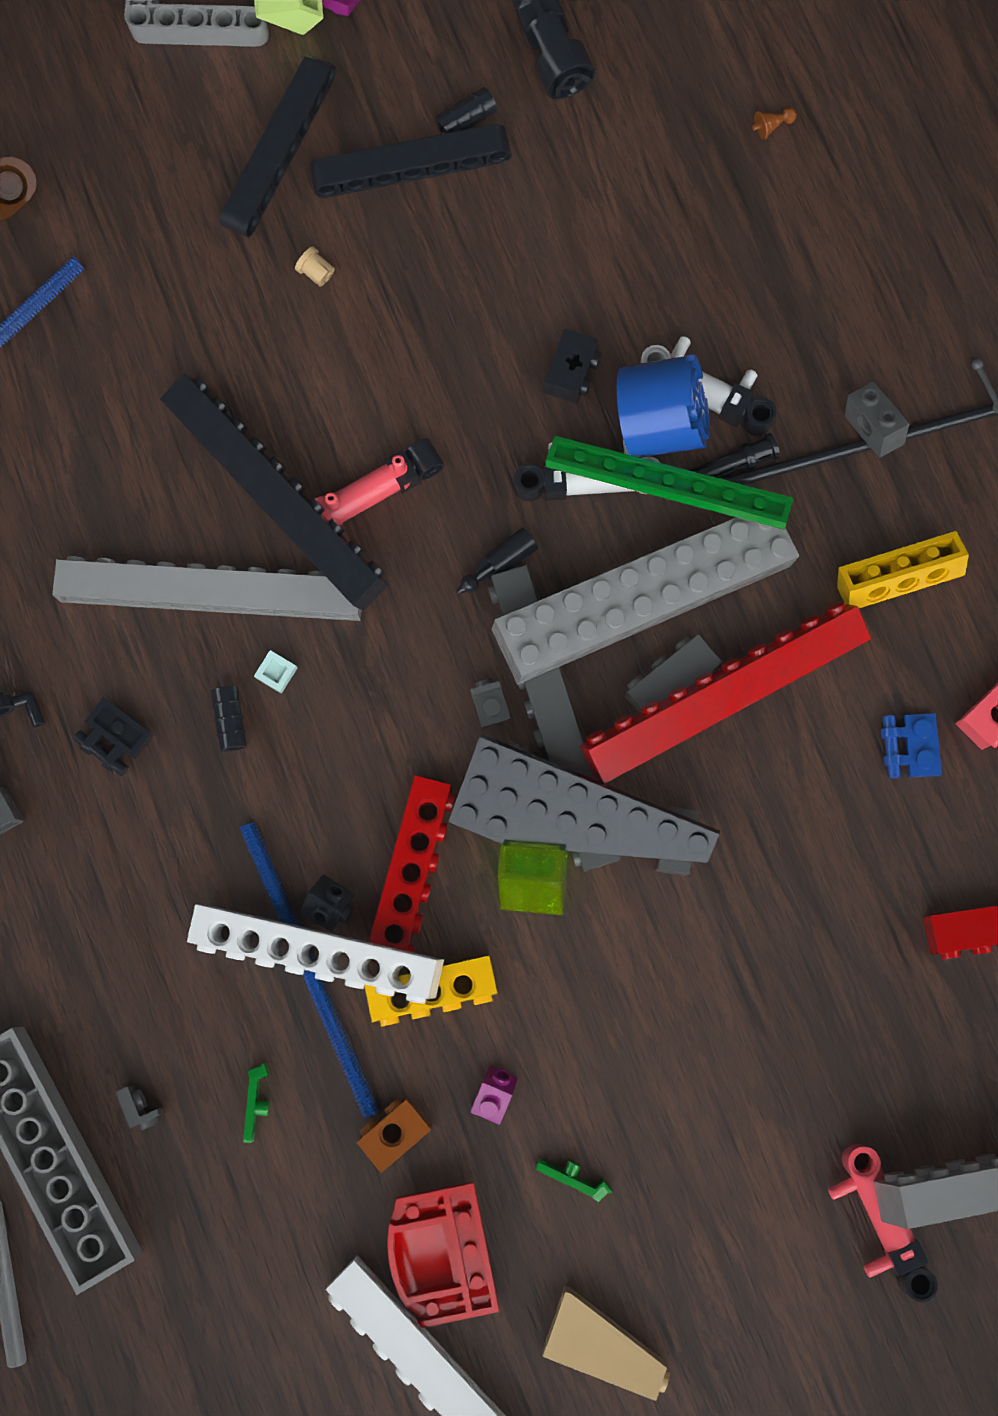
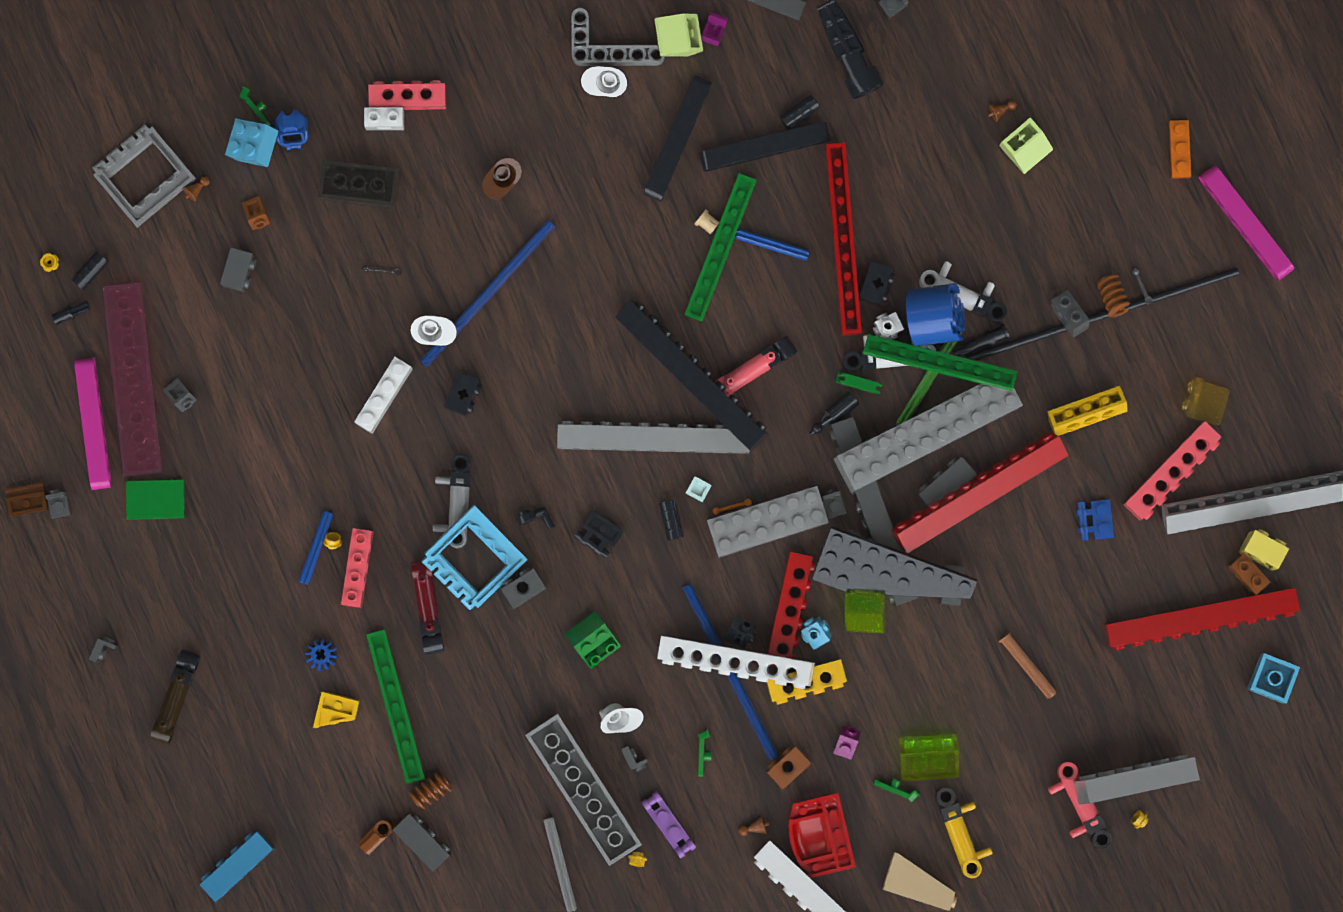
camera: 10 degrees left, 5 degrees up
(87, 907) = (592, 640): none -> green slope
(119, 1040) = (620, 719): none -> white piece
(133, 1280) = (637, 859): none -> yellow plate
(170, 55) = (604, 81): none -> white piece
(190, 1222) = (668, 824): none -> medium lavender plate
(333, 307) = (720, 247): none -> green plate
(338, 1232) = (757, 827): none -> dark orange piece
(353, 697) = (747, 502): none -> orange hinge
(381, 727) = (767, 521): none -> light grey brick
(414, 305) = (772, 244): none -> blue axle
(450, 909) = (816, 632): none -> medium azure brick
(523, 298) = (843, 239): none -> red brick
(537, 515) = (857, 382): none -> green piece
(589, 427) = (892, 321): none -> white brick
(630, 1126) = (929, 757): none -> clear neon green slope
(646, 518) = (922, 388): none -> bright green axle
(676, 1262) = (958, 833): none -> yellow piece
(798, 979) = (1028, 665): none -> nougat axle
(811, 169) = (1026, 146): none -> yellowish green slope
(945, 394) = (1112, 295): none -> dark orange piece
(982, 1249) = (1139, 819): none -> yellow plate

